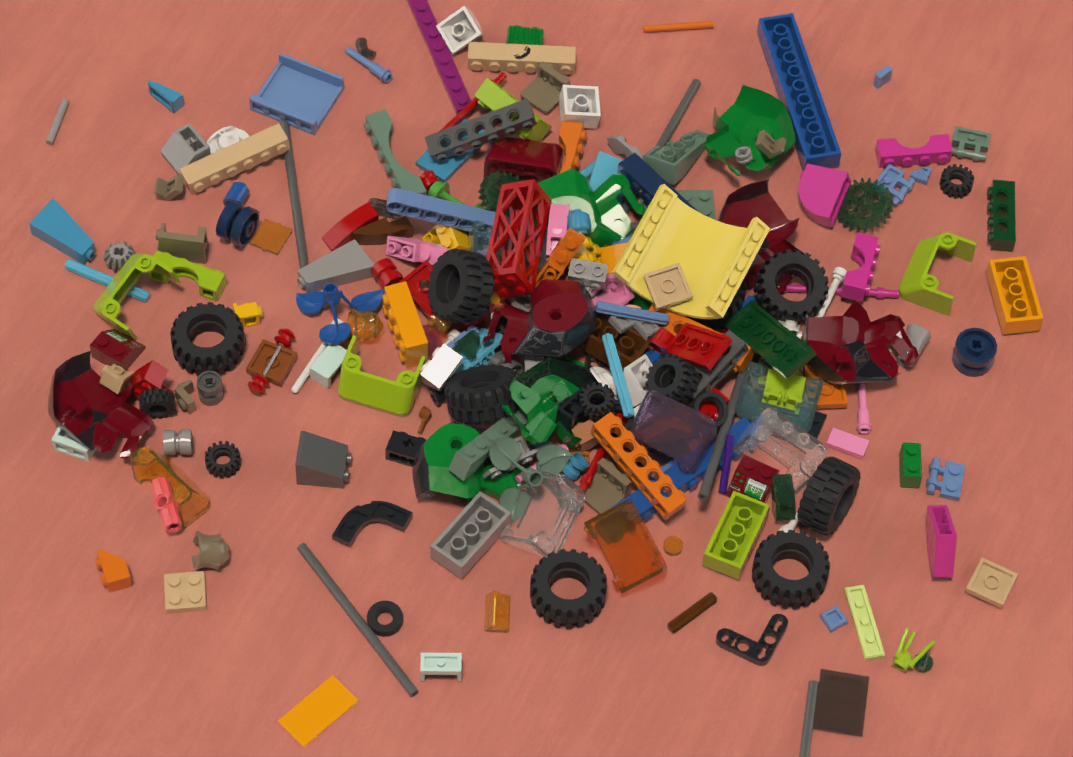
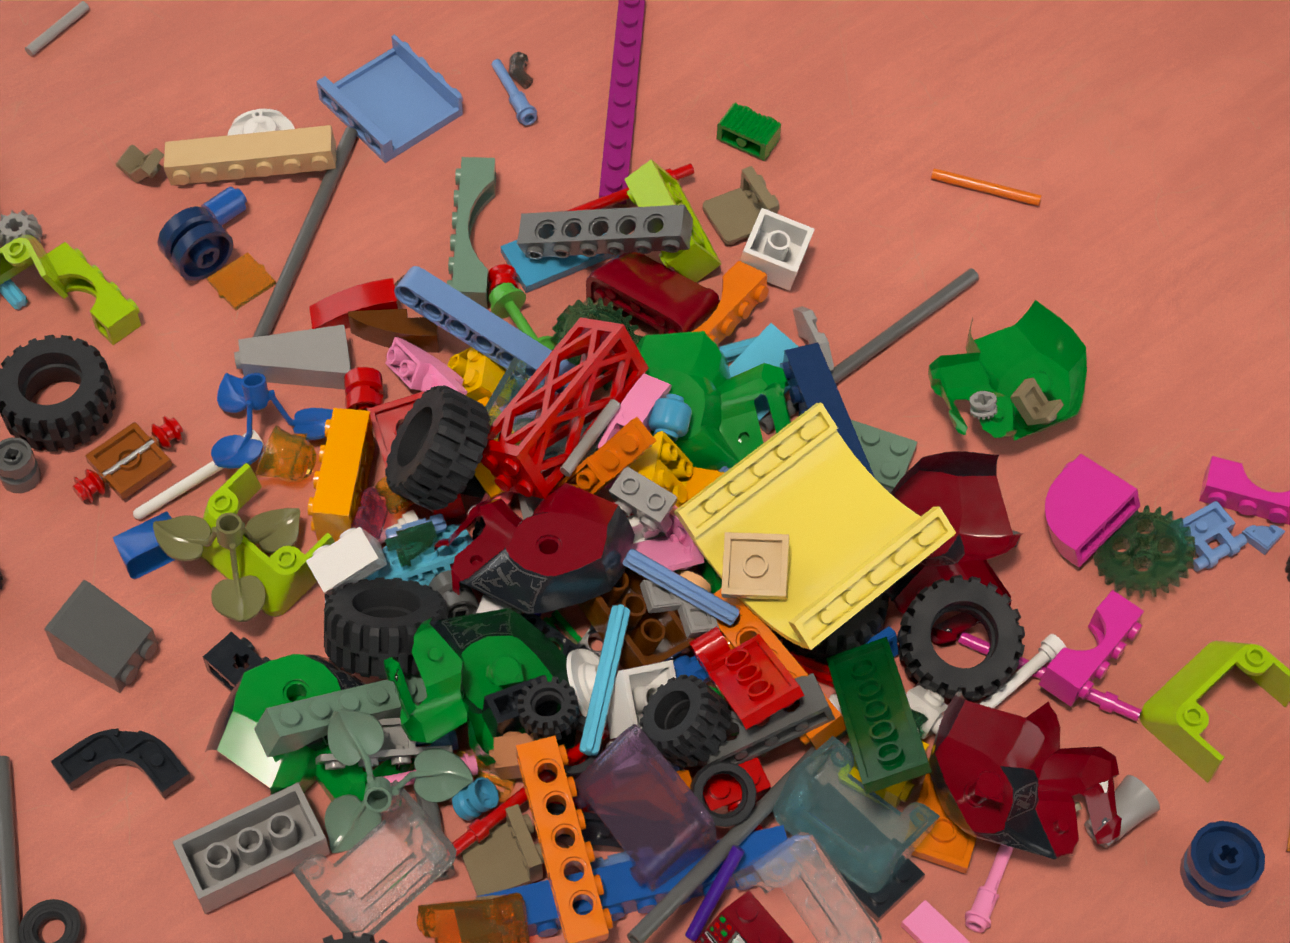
camera: 25 degrees right, 0 degrees up
(169, 98) = (216, 44): dark azure slope -> none
(185, 147) = (193, 115): light grey slope -> none
(185, 246) = (115, 256): dark tan panel -> none
(248, 313) = (135, 378): yellow brick -> none
(315, 403) = (140, 549): none -> blue piece
(327, 364) = (193, 494): light aqua panel -> none
(341, 388) = (245, 596): none -> olive plant
(424, 413) = (302, 626): dark orange hand -> none
(459, 29) = (663, 84): white slope -> none
(520, 57) = (730, 153): tan brick -> none
(541, 250) = (590, 437): none -> light grey bar
(676, 157) = (882, 375): sand green wedge -> none
(783, 391) = (864, 814): lime hinge -> none
(798, 90) = (1121, 343): blue brick -> none
(882, 77) = (1266, 364): tile -> none

